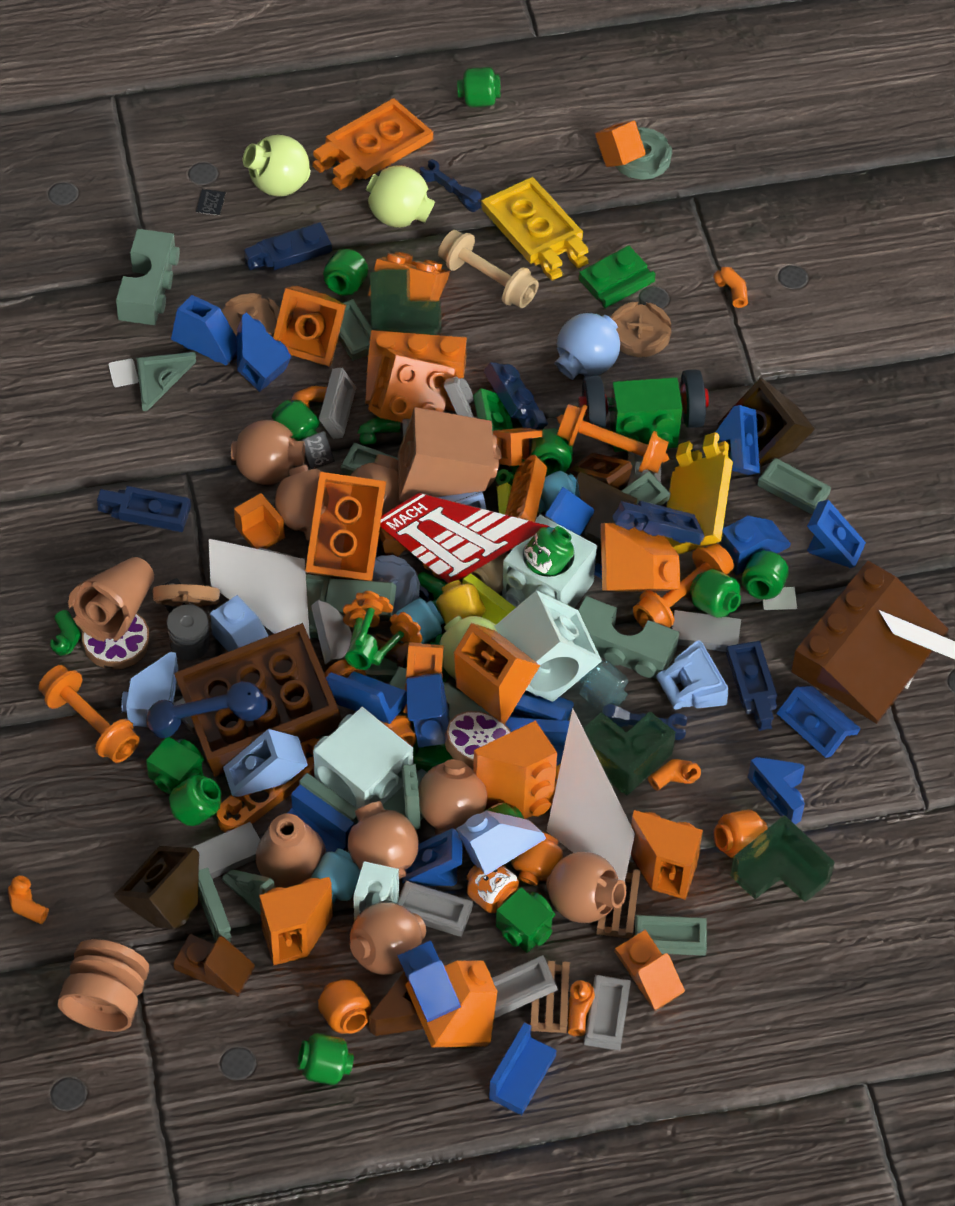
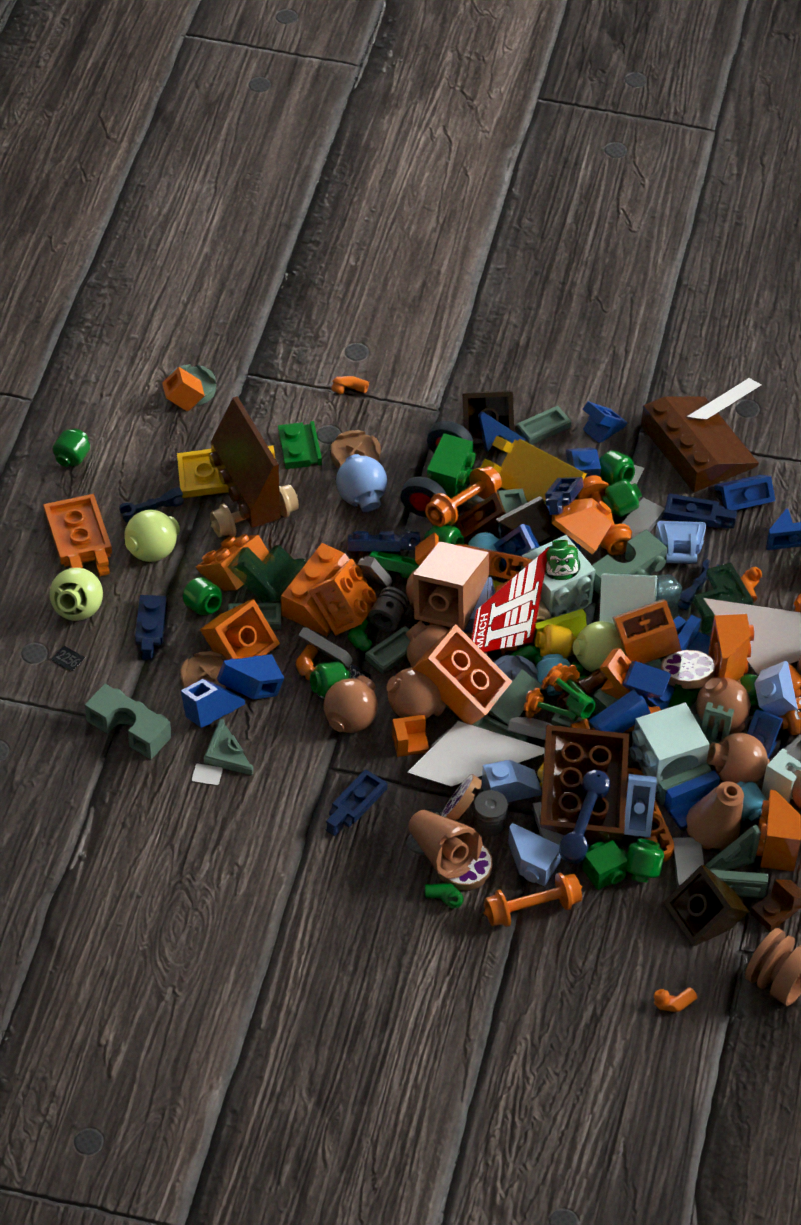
camera: 65 degrees left, 5 degrees down
(516, 229) = (246, 466): none -> reddish brown slope

